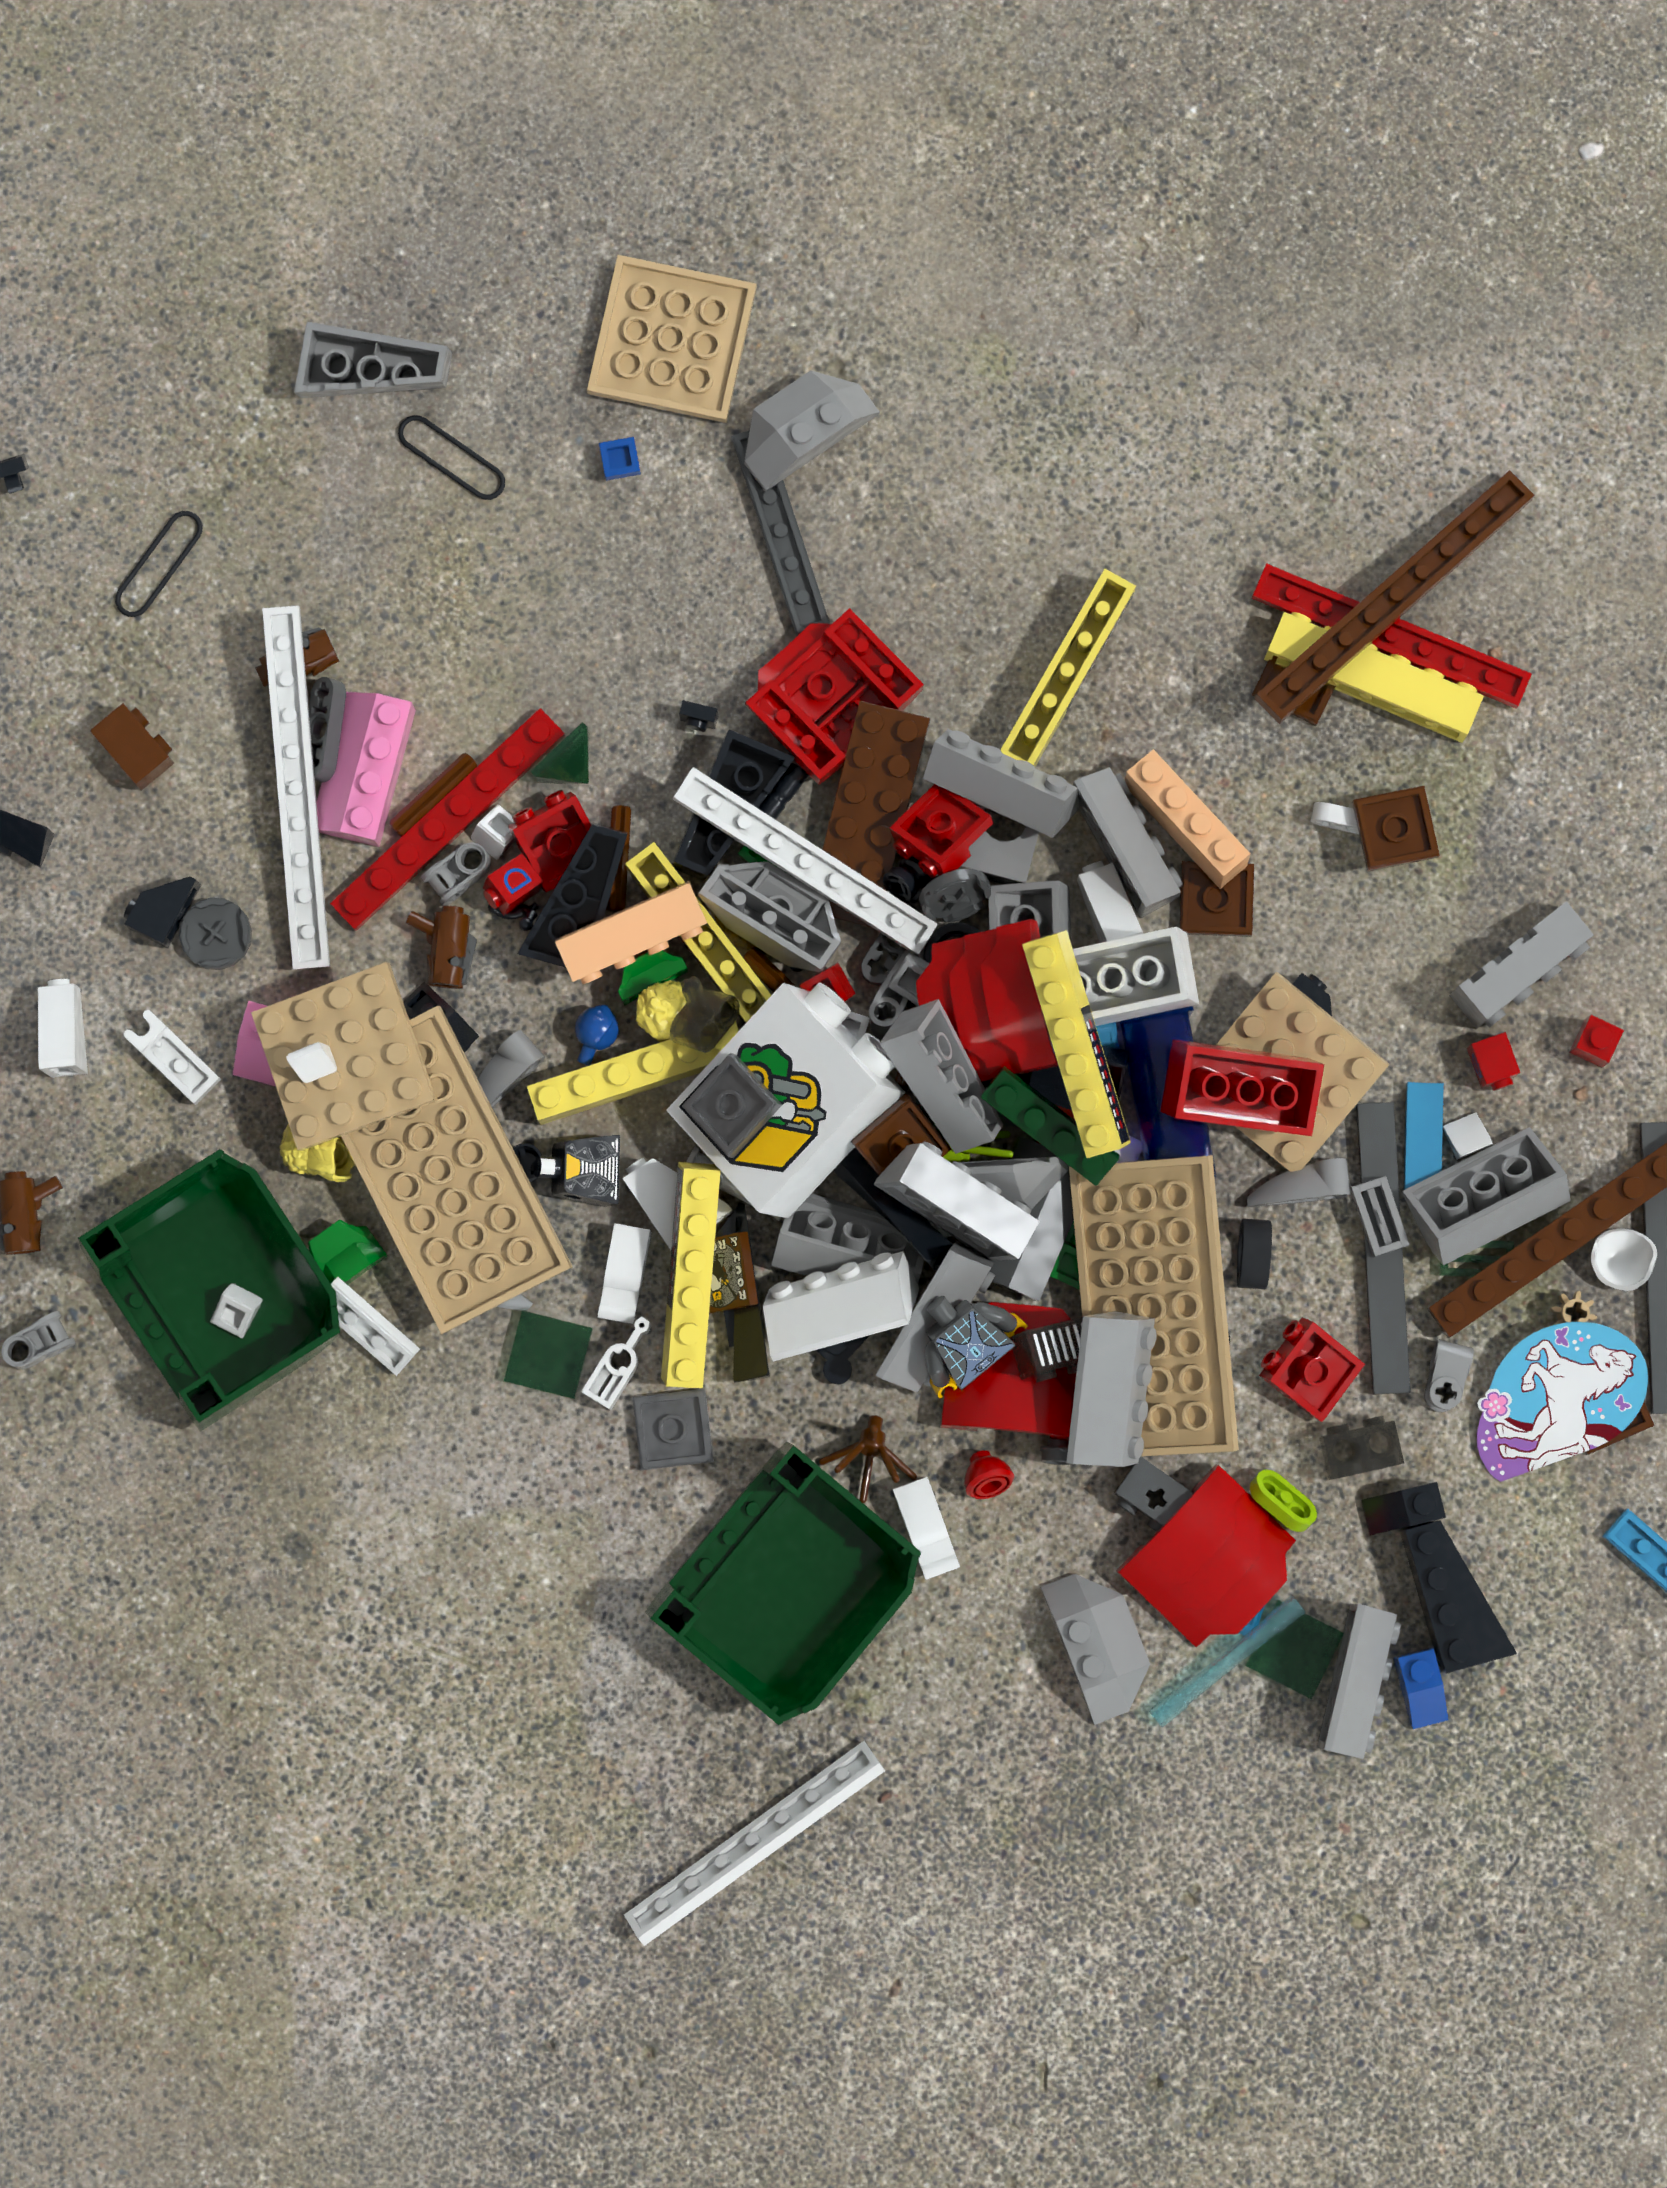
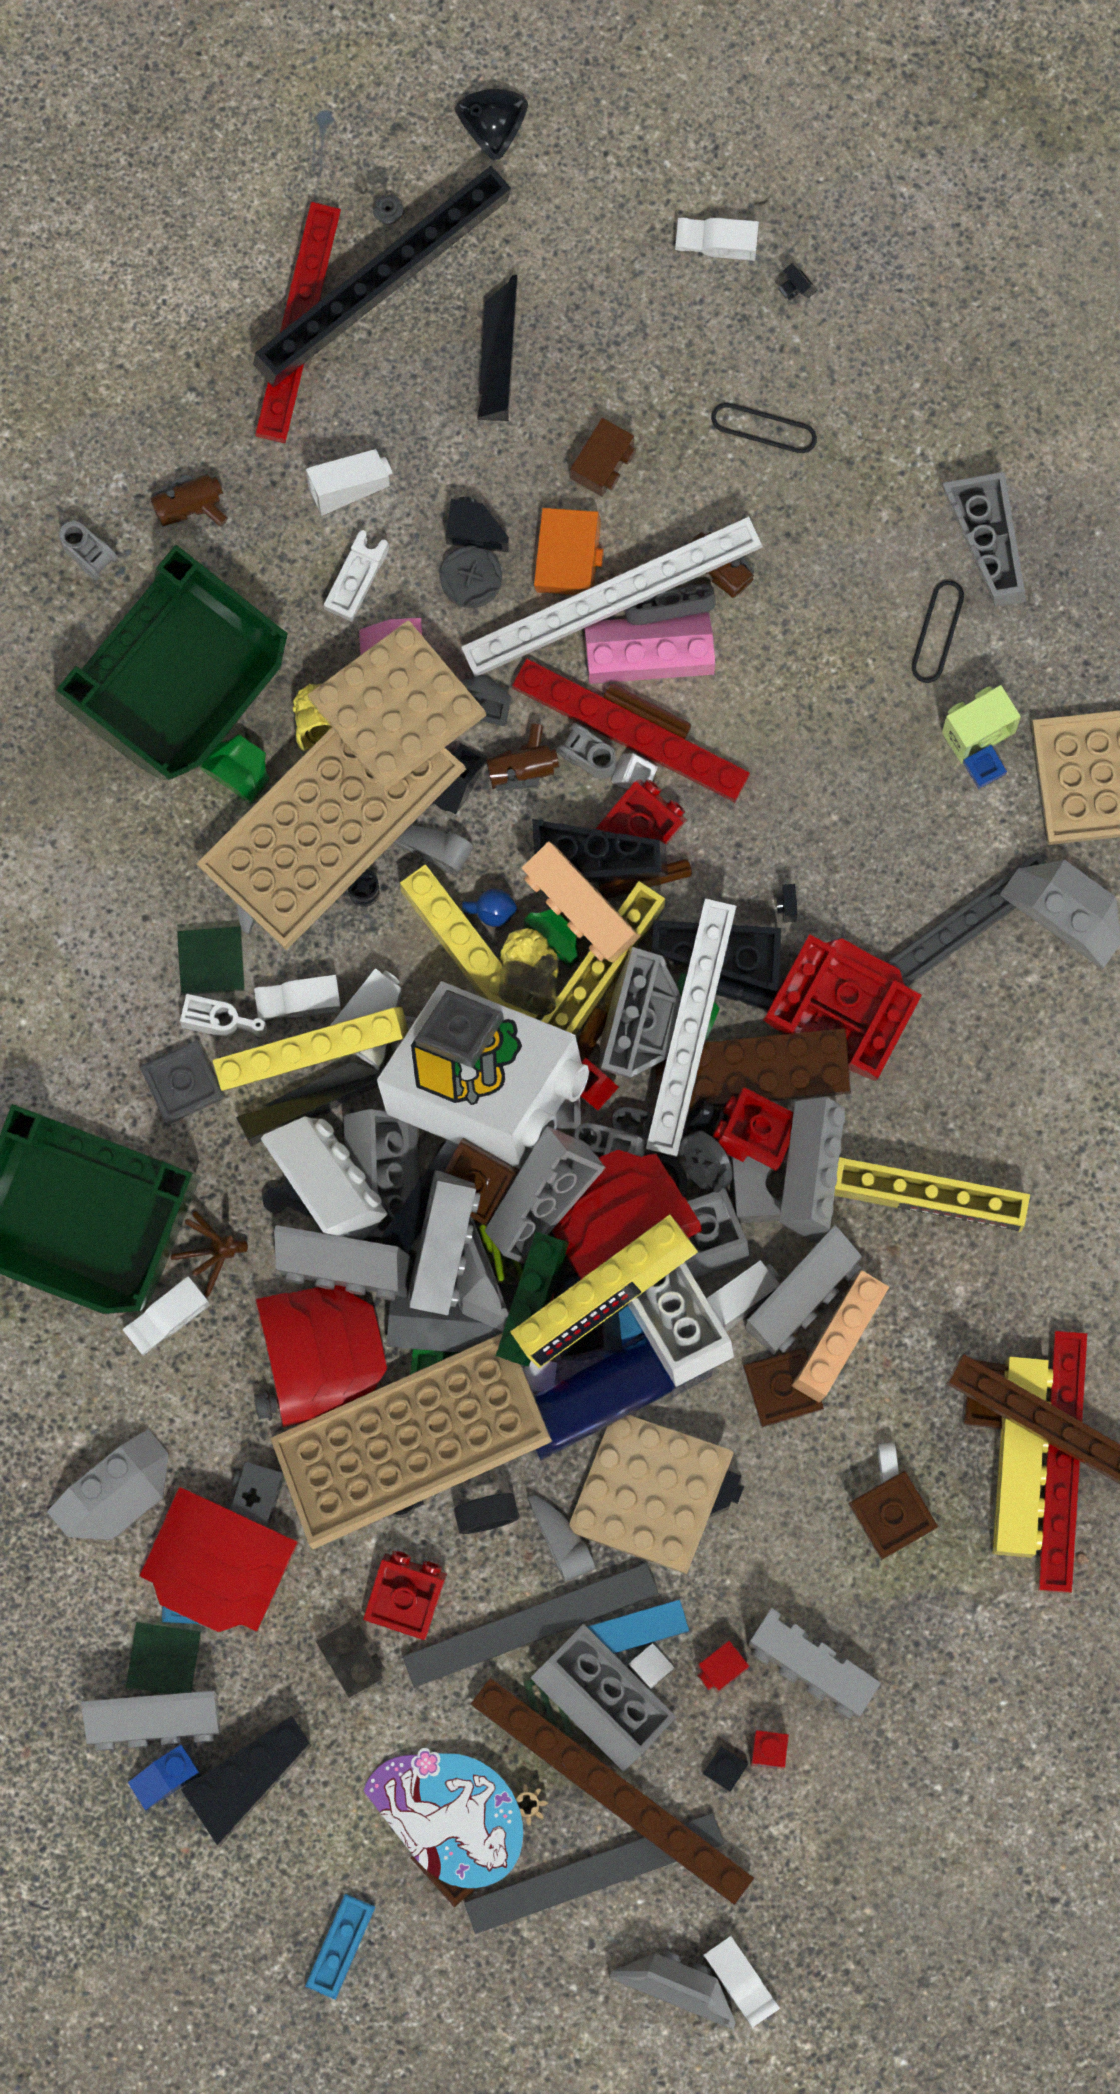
camera: 70 degrees right, 5 degrees down
(225, 819) = (568, 551): none -> orange container
(236, 1310) = (165, 697): white slope -> none
(312, 1062) = (381, 679): white slope -> none
(359, 956) = (491, 698): none -> dark grey slope
(372, 1329) = (184, 808): white tile -> none
(511, 885) = (591, 798): red brick -> none
(525, 911) = (569, 793): black piece -> none
(568, 761) = (714, 810): clear green slope -> none
(573, 436) = (980, 722): none -> yellowish green brick
(583, 1170) = (372, 934): black torso -> none
(732, 1274) = (323, 1081): tile -> none
(966, 1341) = (329, 1290): dark grey torso -> none
(987, 1476) = (225, 1352): red brick -> none
(1048, 1350) = (348, 1368): clear smoke brick -> none
(1111, 1389) = (327, 1423): light grey slope -> none
(1180, 1699) = (91, 1576): clear light blue piece -> none
(1242, 1088) = (618, 1449): red brick -> none
(1283, 1500) = (285, 1608): lime plate -> none
(1366, 1222) = (532, 1628): light grey tile -> none
(1403, 1508) = (312, 1713): black slope -> none
(1448, 1368) = (445, 1712): light grey piece -> none
(1598, 1094) = (725, 1769): none -> black plate
(1623, 1258) = (588, 1832): white helmet -> none

